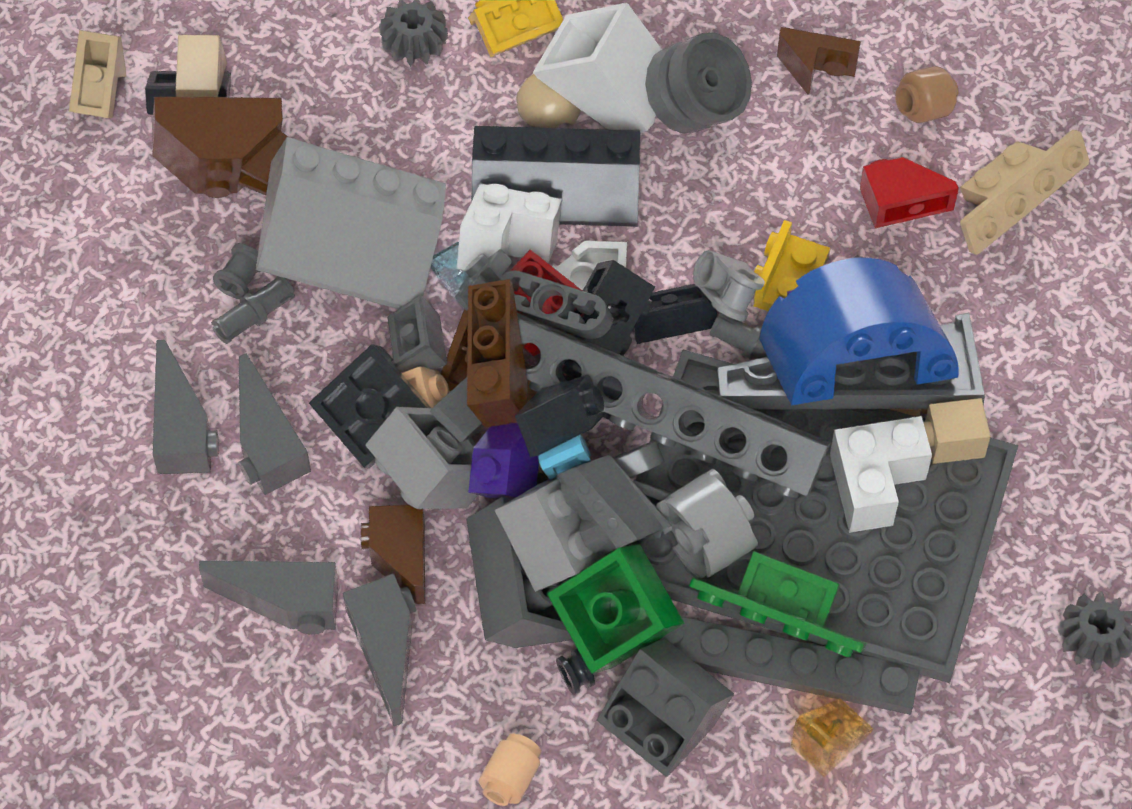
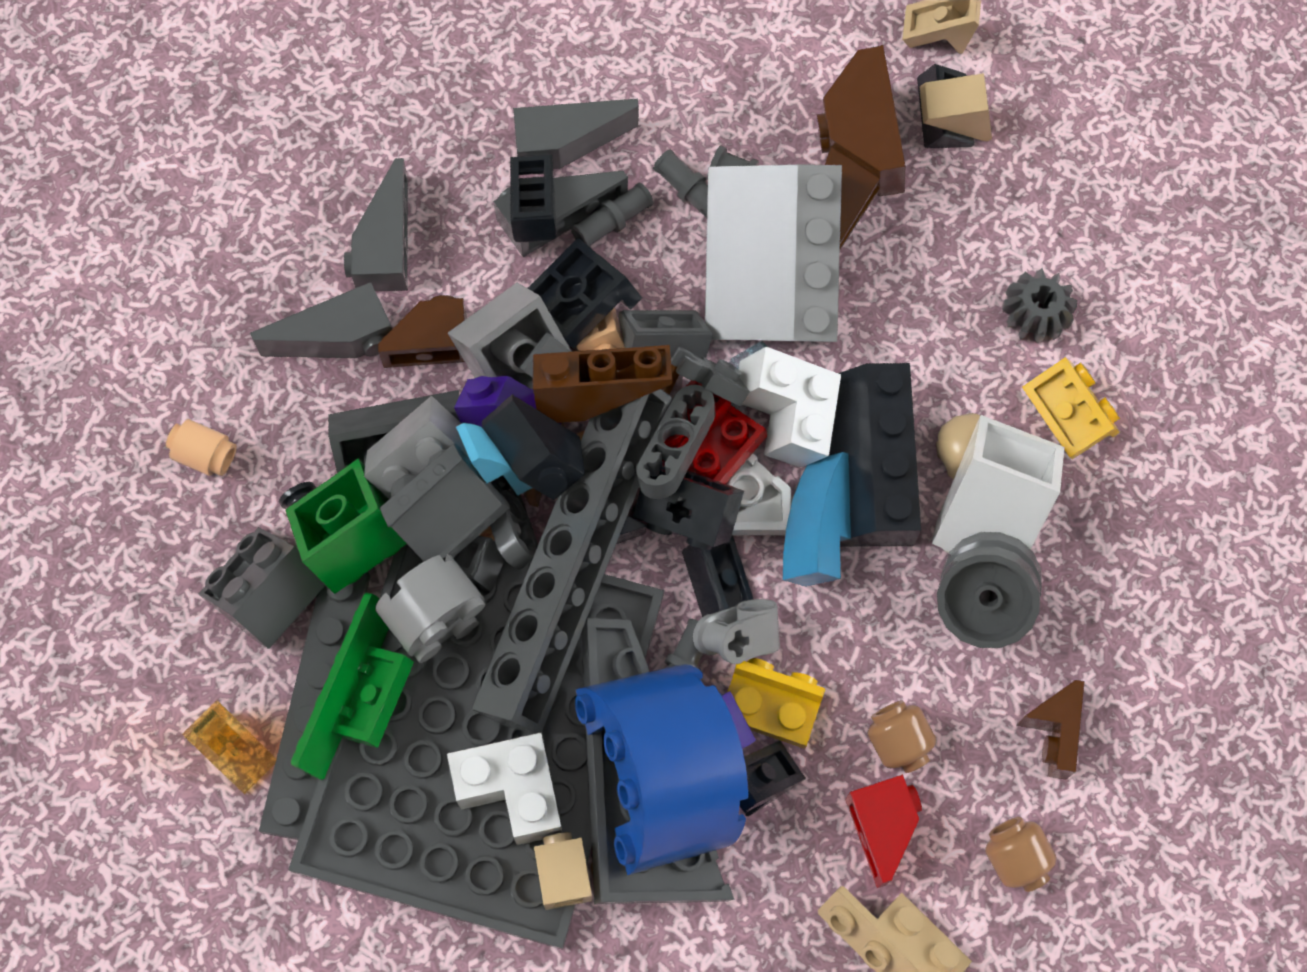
camera: 85 degrees right, 10 degrees up
(265, 447) = (532, 222): none -> black slope
(279, 381) = (613, 215): none -> dark grey pin
(620, 218) = (818, 522): none -> dark azure slope
(823, 172) = (901, 736): none -> medium nougat head

